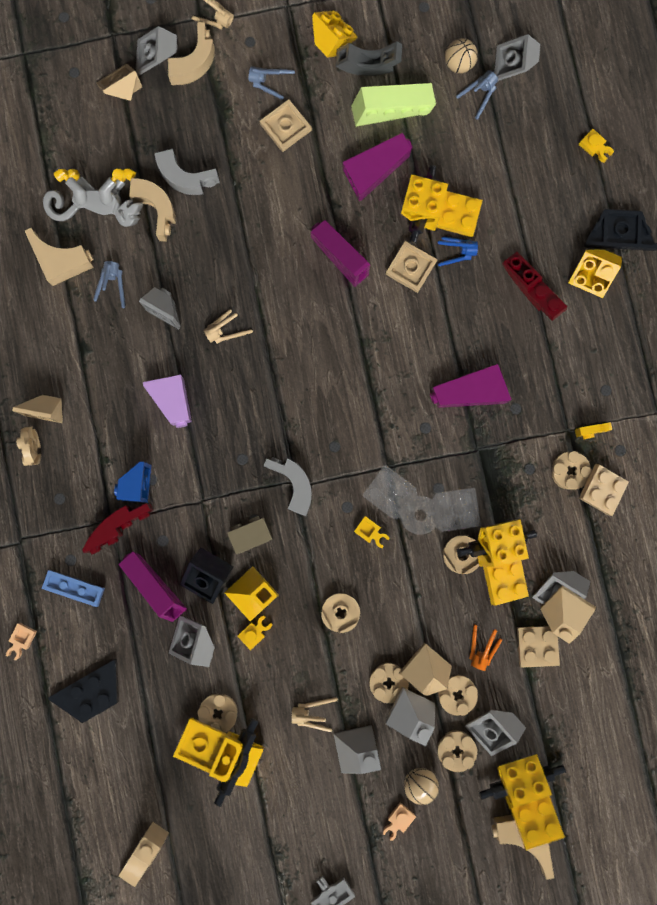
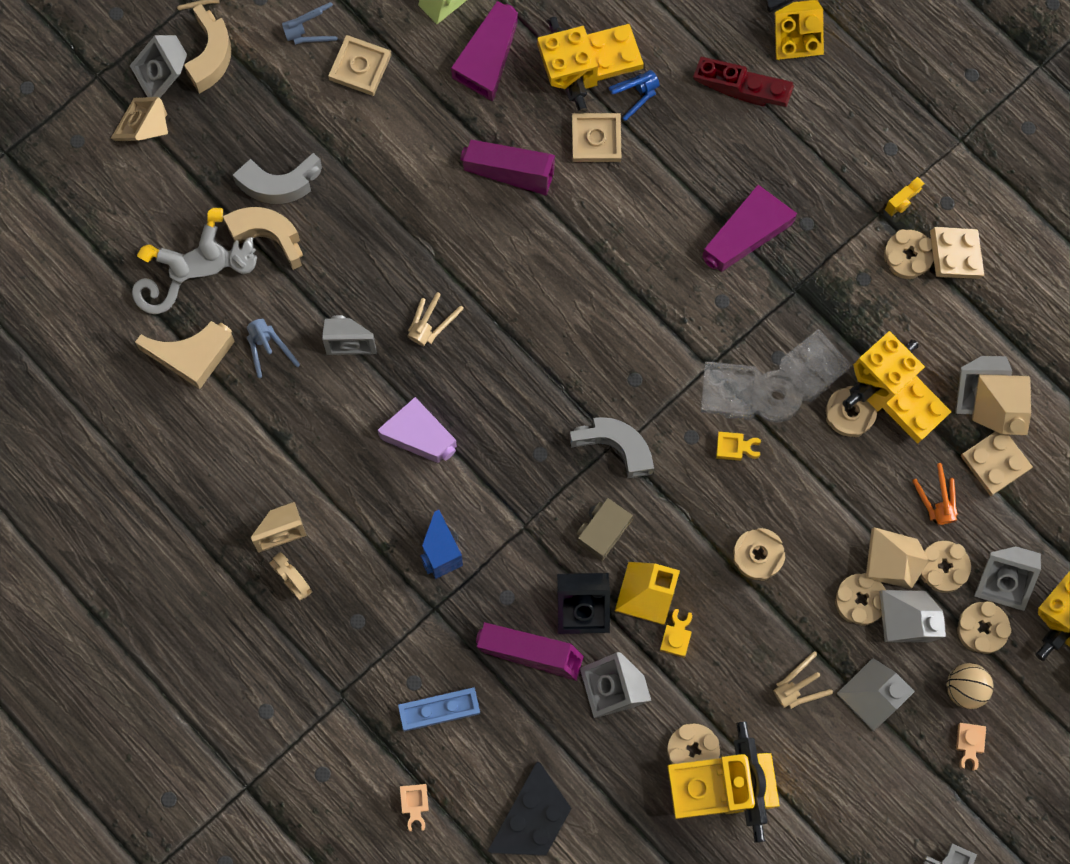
camera: 35 degrees left, 10 degrees down
(109, 529) = (440, 618): dark red slope -> none

